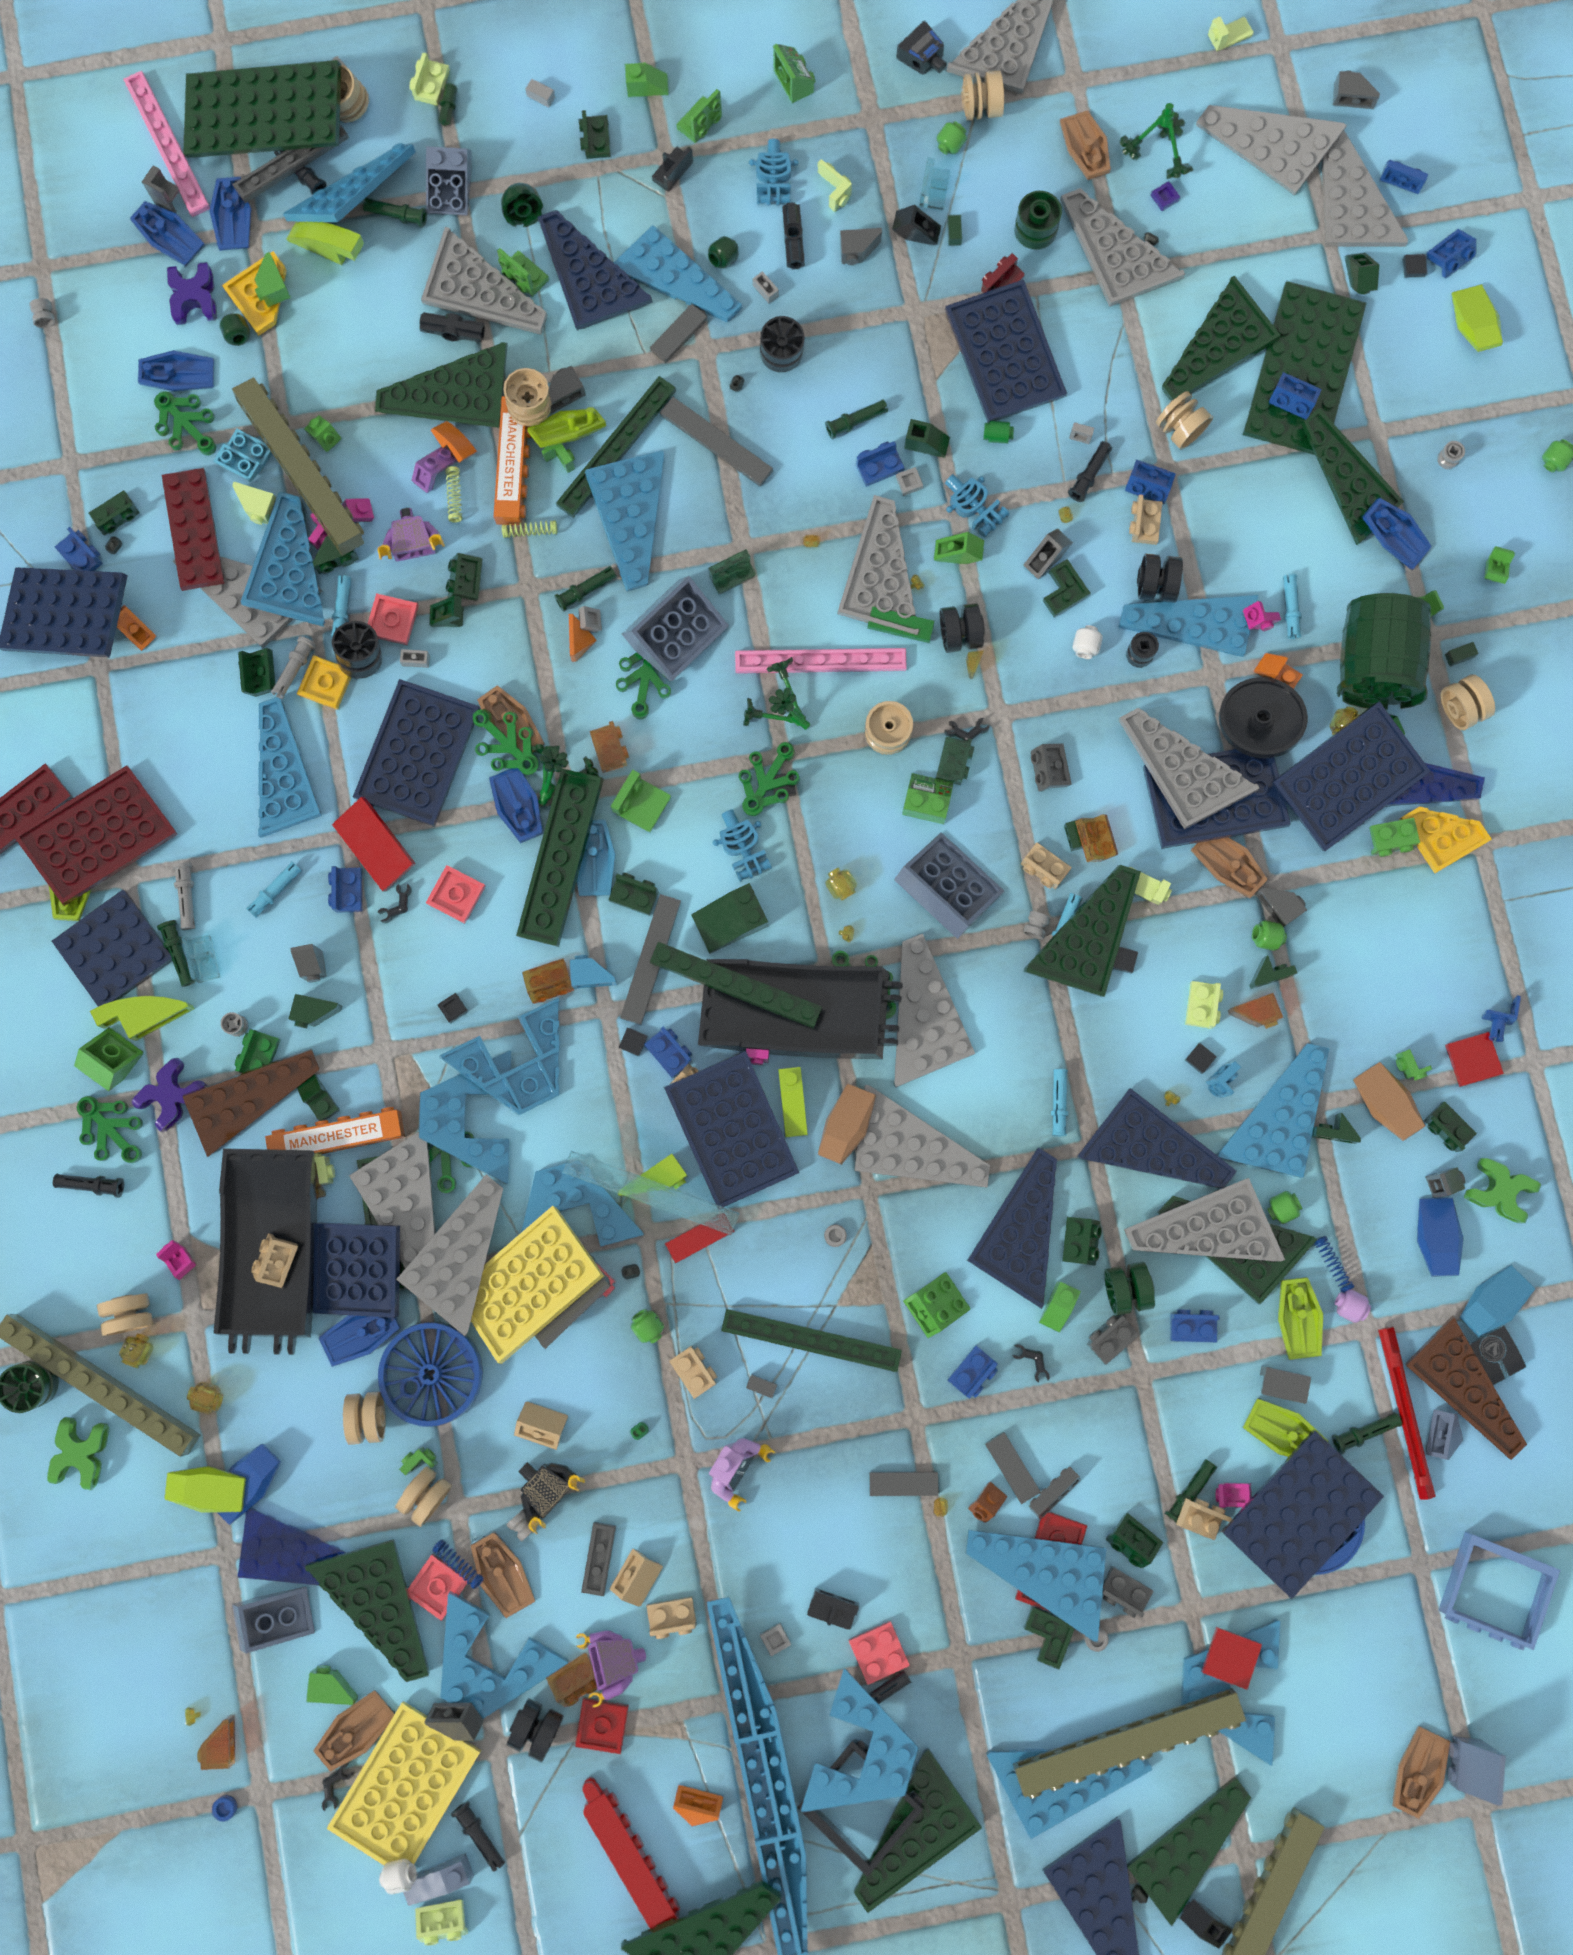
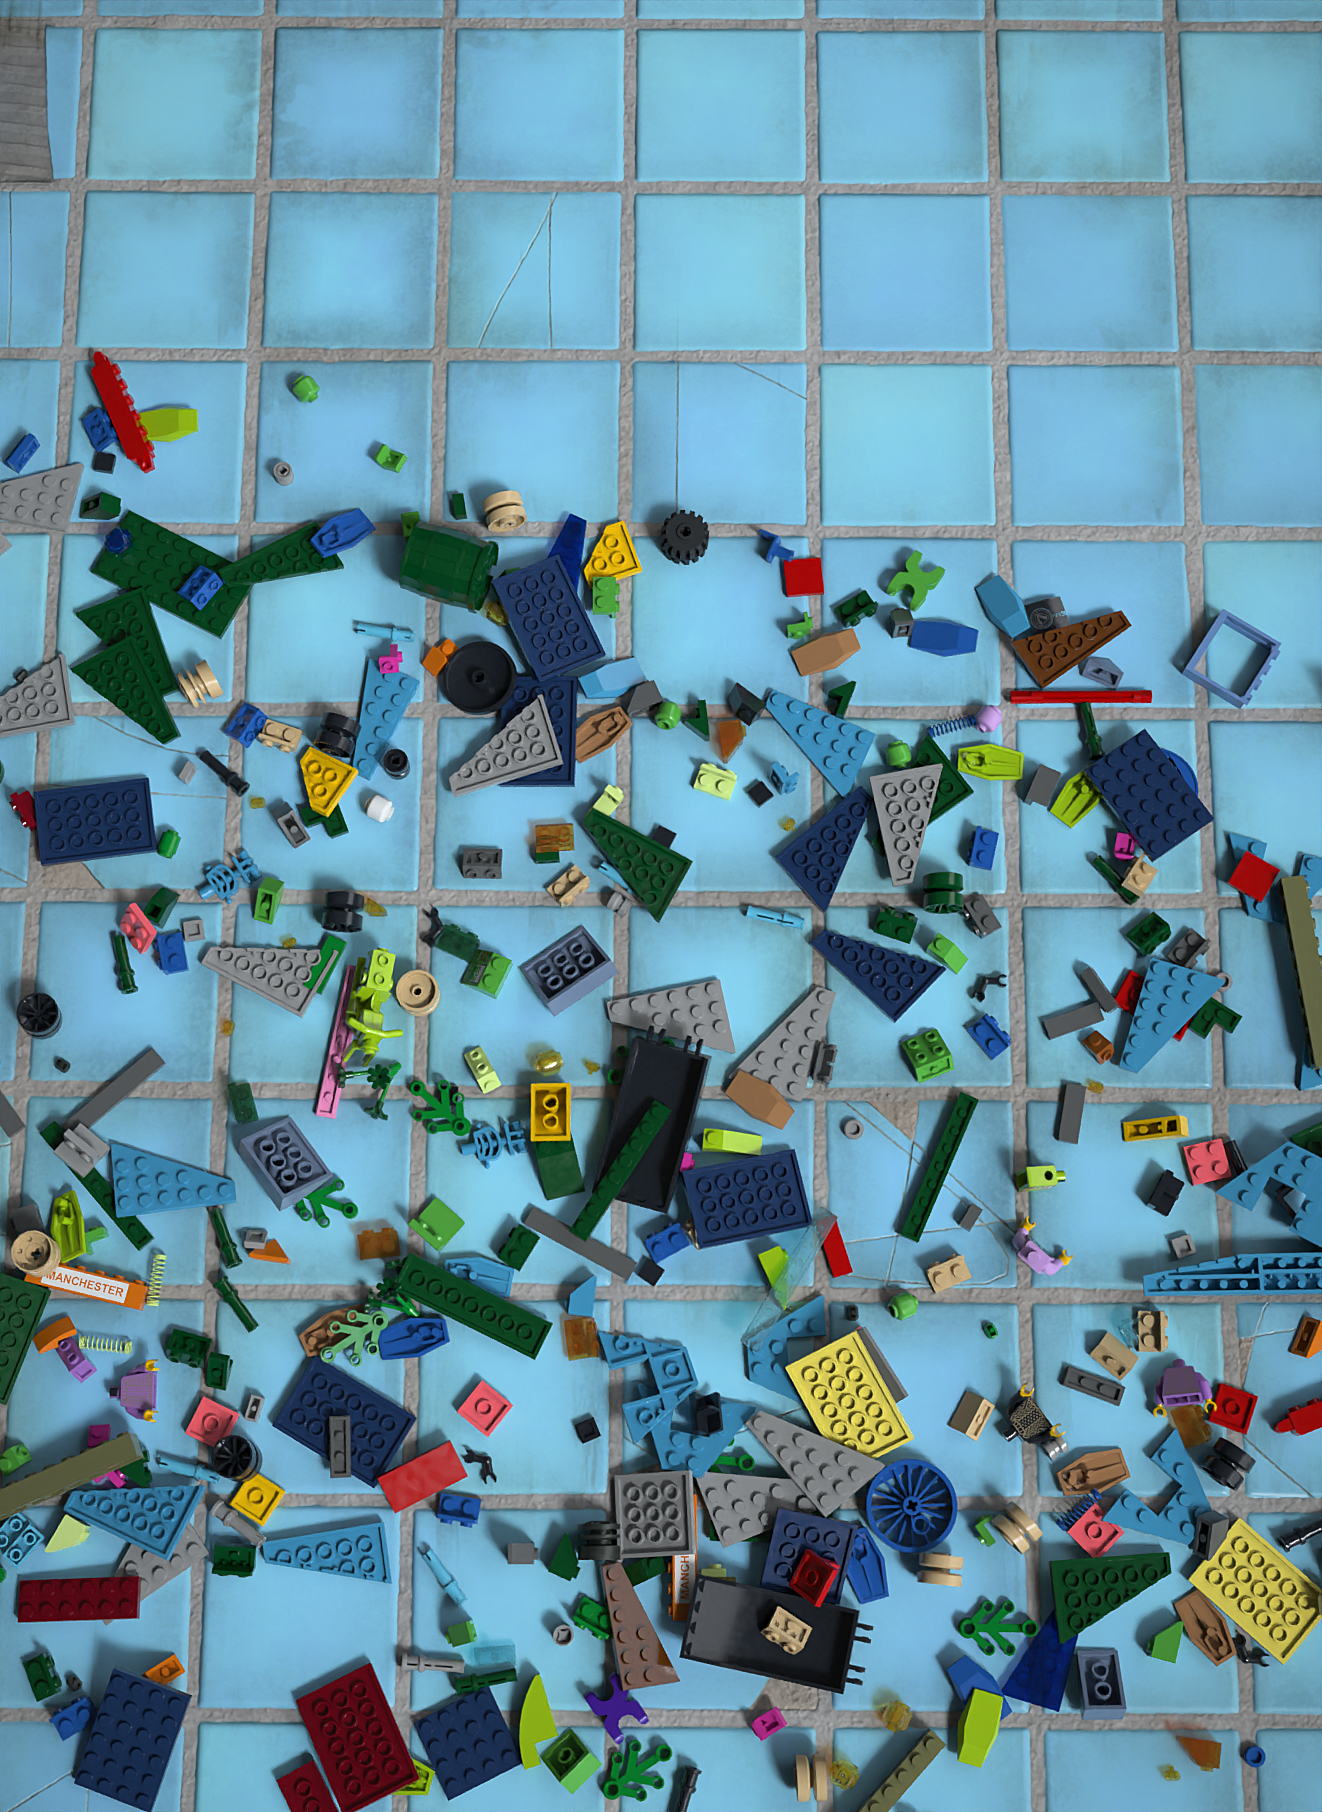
camera: 80 degrees left, 5 degrees down
(218, 919) = (461, 1633): none -> bright green slope
(315, 1490) = (993, 1628): none -> green plant
(330, 1279) = (814, 1577): none -> red bracket
(338, 1040) = (599, 1541): none -> pearl dark grey wheel
(372, 1095) = (655, 1514): none -> light grey plate
(388, 752) = (340, 1446): none -> dark grey tile
(489, 1129) = (705, 1413): none -> black panel
(525, 608) = (231, 1297): none -> dark green pin
(648, 420) = (81, 1150): none -> light grey bracket
(661, 1592) = (1129, 1335): none -> clear light blue bracket
(784, 896) = (551, 1112): none -> yellow slope
(817, 1452) = (1038, 1178): none -> lime torso
(818, 814) = (482, 1070): none -> yellowish green bracket
(863, 676) = (365, 1003): none -> lime piece
(897, 420) = (137, 928): none -> coral plate
(904, 1586) = (1156, 1129): none -> yellow slope
(909, 1187) = (822, 1069): none -> dark grey hinge
(1106, 577) = (325, 780): none -> yellow plate
(1170, 344) = (128, 683): none -> dark green wing
(1297, 864) = (611, 679): none -> dark azure piece
(1302, 1021) = (745, 704): none -> black slope
(1327, 296) = (118, 540): none -> clear blue head
(1478, 267) = (122, 412): none -> red hinge
(1478, 919) = (682, 547): none -> black wheel

